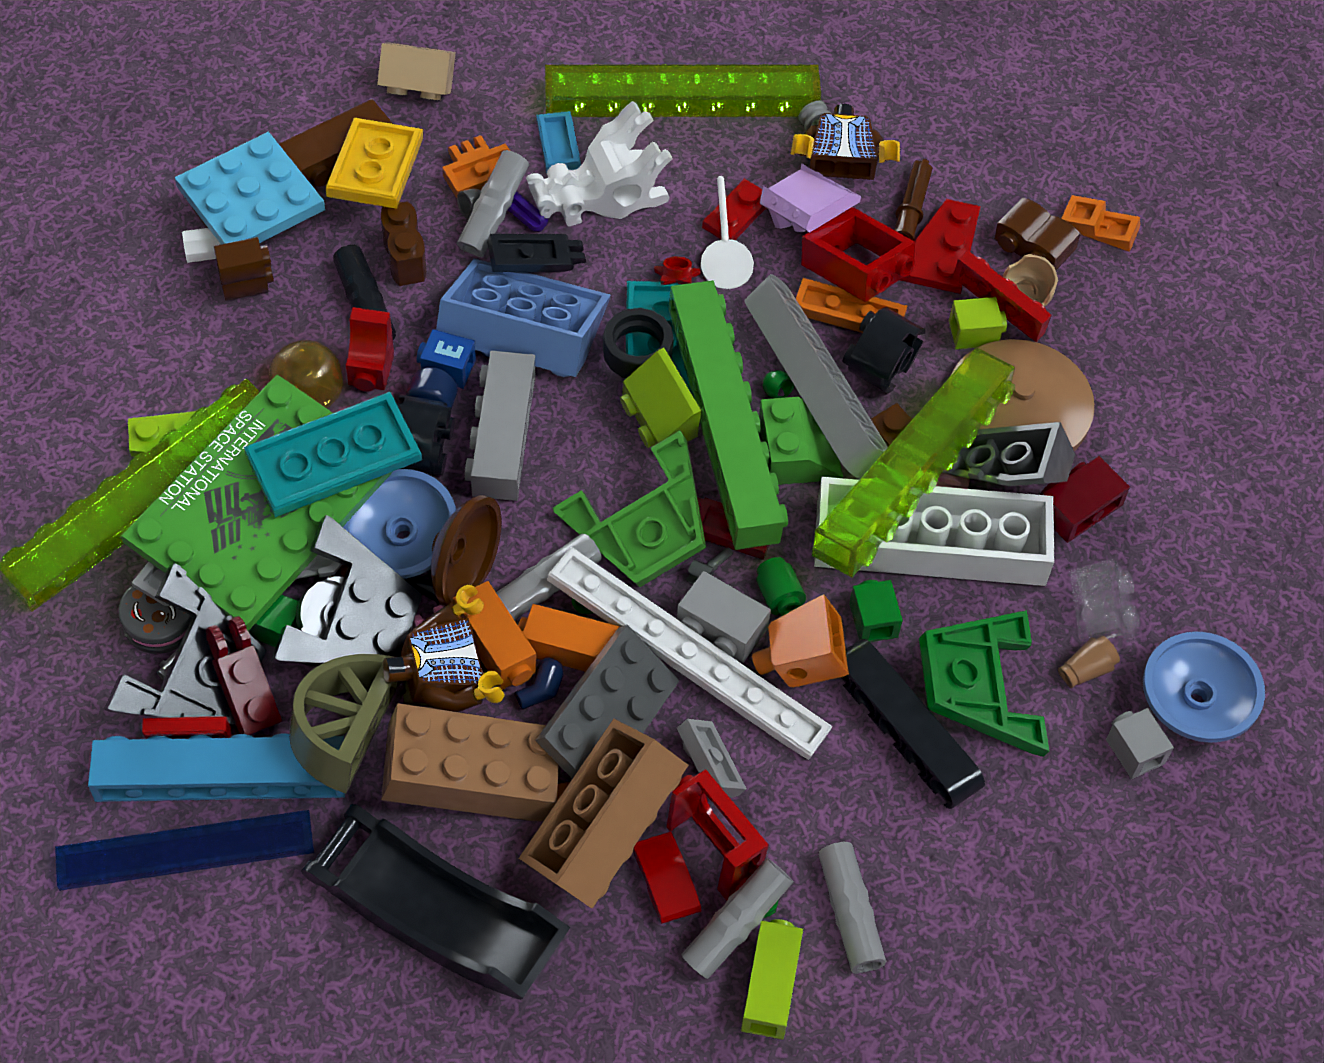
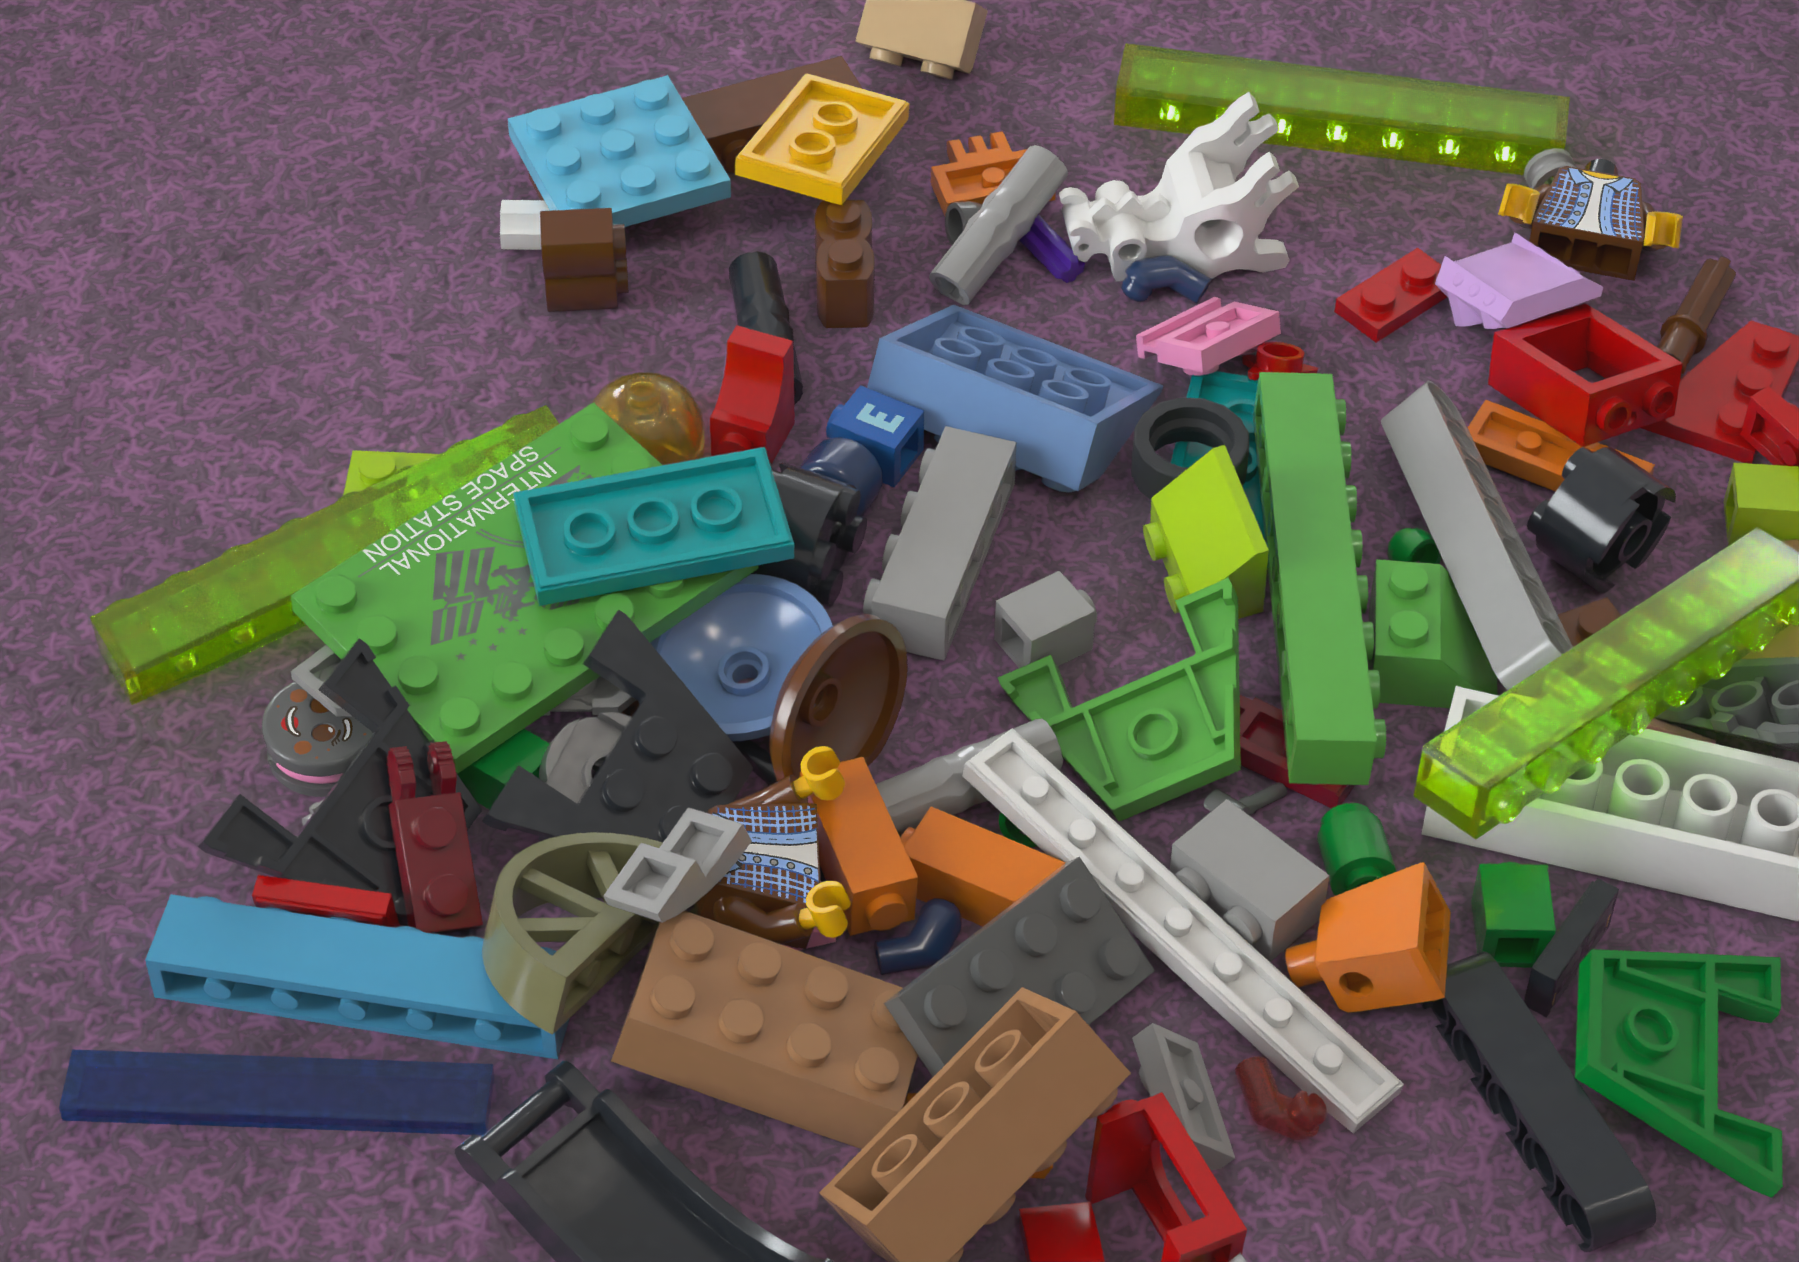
camera: 15 degrees right, 10 degrees down
(402, 679) = (684, 868): none -> light grey slope
(534, 252) = (1051, 305): black hinge -> none
(558, 140) = (1127, 153): dark azure tile -> none
(573, 468) = (1045, 621): none -> light grey brick
(595, 219) = (1163, 272): none -> dark blue arm
(632, 259) = (1208, 335): none -> bright pink plate
(726, 259) = (1365, 361): white piece -> none
(763, 755) = (1291, 1117): none -> clear red arm
(910, 625) = (1569, 946): none -> black tile

